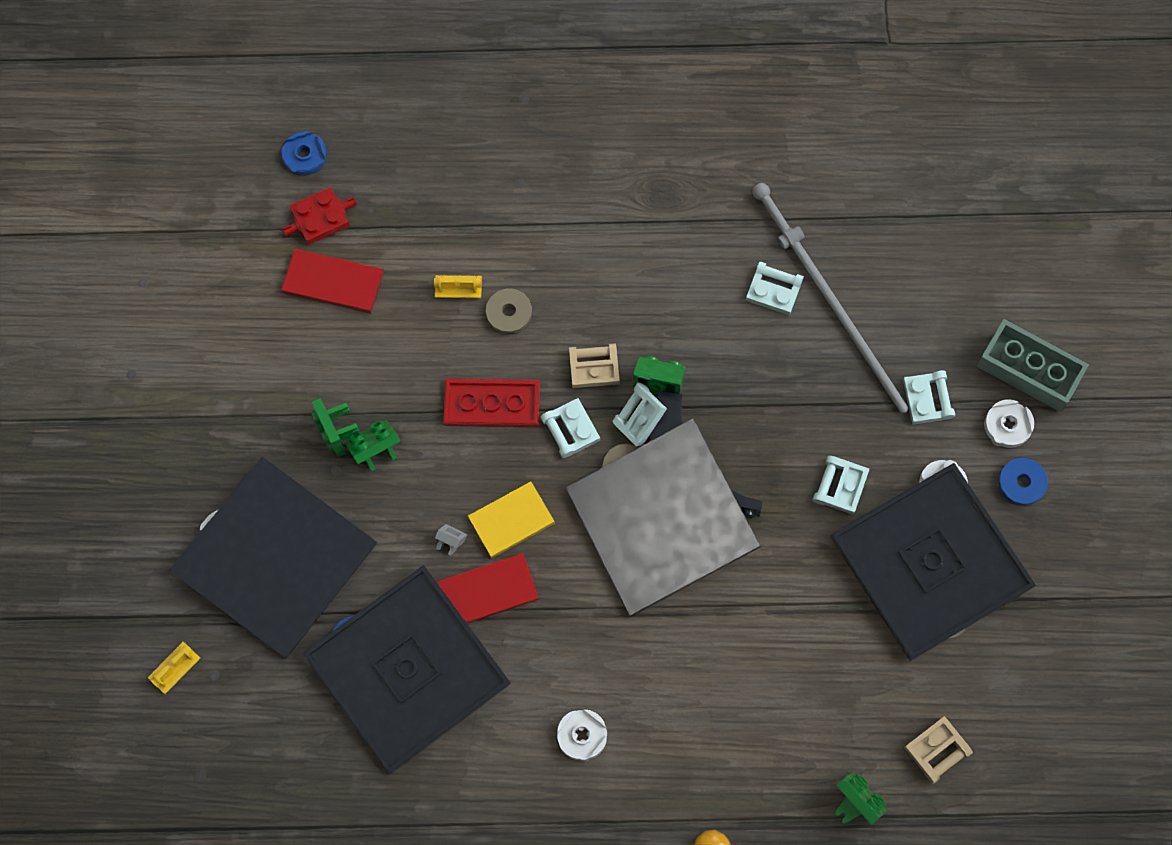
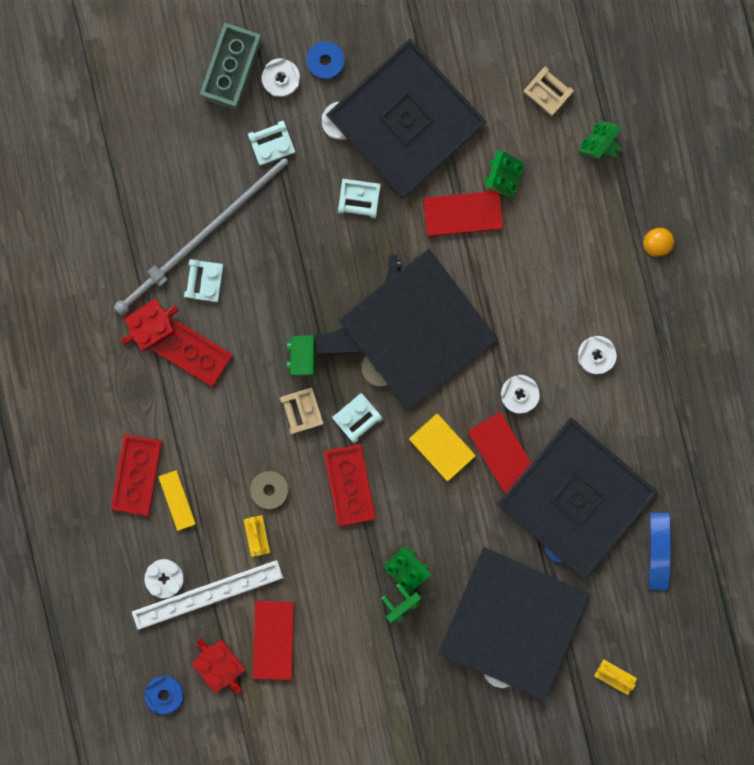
camera: 100 degrees left, 15 degrees up
(315, 758) = (659, 551): none -> blue slope
(404, 222) = (207, 594): none -> white tile
(435, 165) = (172, 585): none -> white plate
(450, 536) = (467, 490): light grey tile -> none
(522, 209) = (177, 500): none -> yellow tile
(553, 613) = (510, 399): none -> white plate
(562, 172) = (136, 475): none -> red tile
(644, 417) = (341, 359): light aqua plate -> none
(693, 257) = (193, 353): none -> red tile
(734, 217) = (149, 325): none -> red plate
(798, 608) = (463, 213): none -> red tile
(838, 666) = (504, 174): none -> green plate

